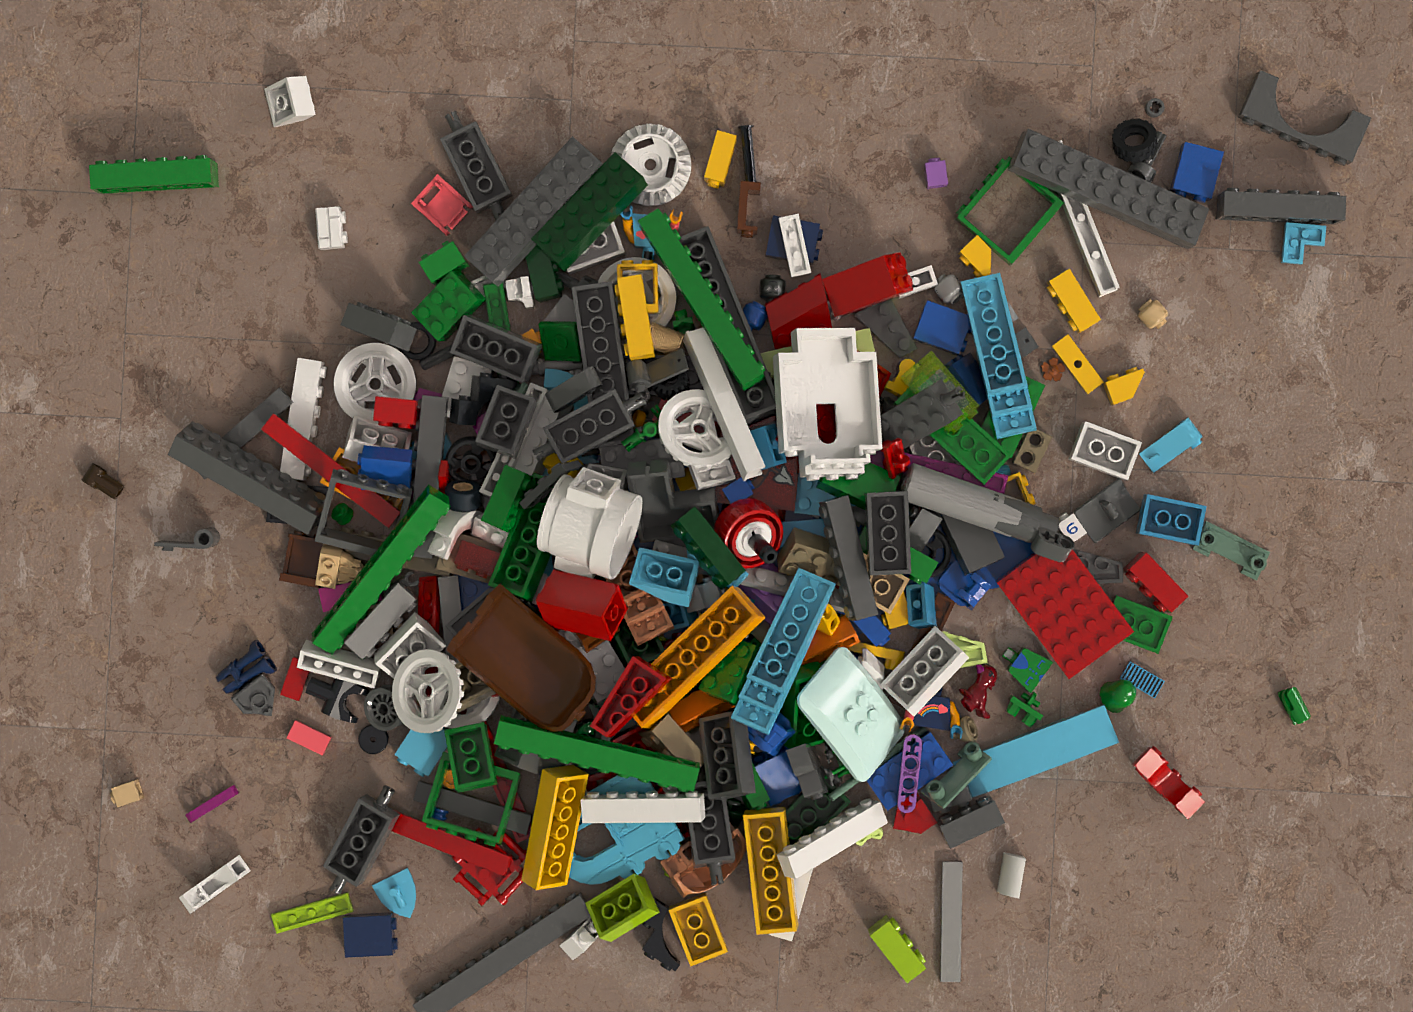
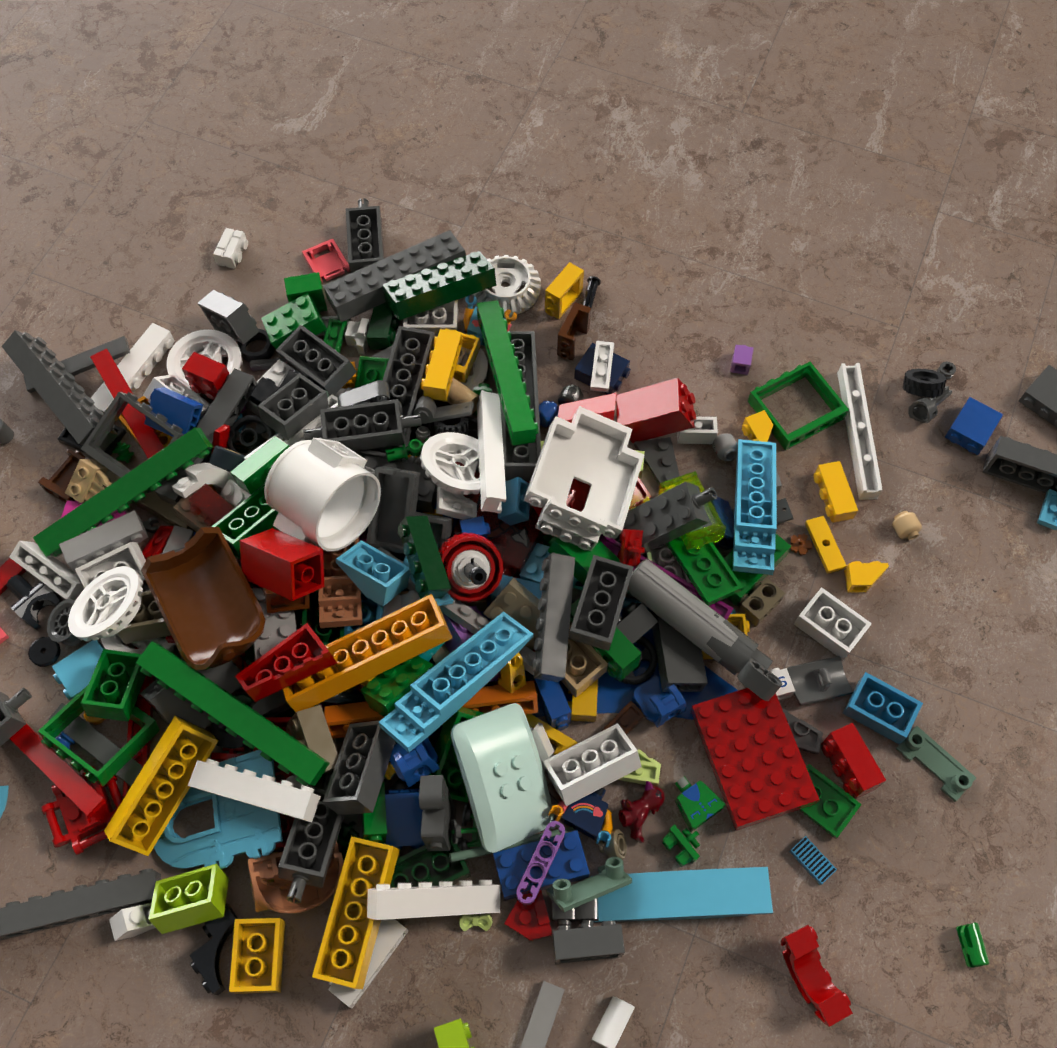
camera: 15 degrees right, 25 degrees down
(153, 175) = (116, 171): green brick -> none
(289, 101) = (247, 160): white slope -> none
(921, 606) = (610, 703): dark azure brick -> none
(942, 328) = (712, 472): blue brick -> none
(1108, 189) = (893, 409): dark grey brick -> none
(1117, 695) = (784, 866): green hair -> none
(1171, 445) = (898, 641): medium azure door -> none

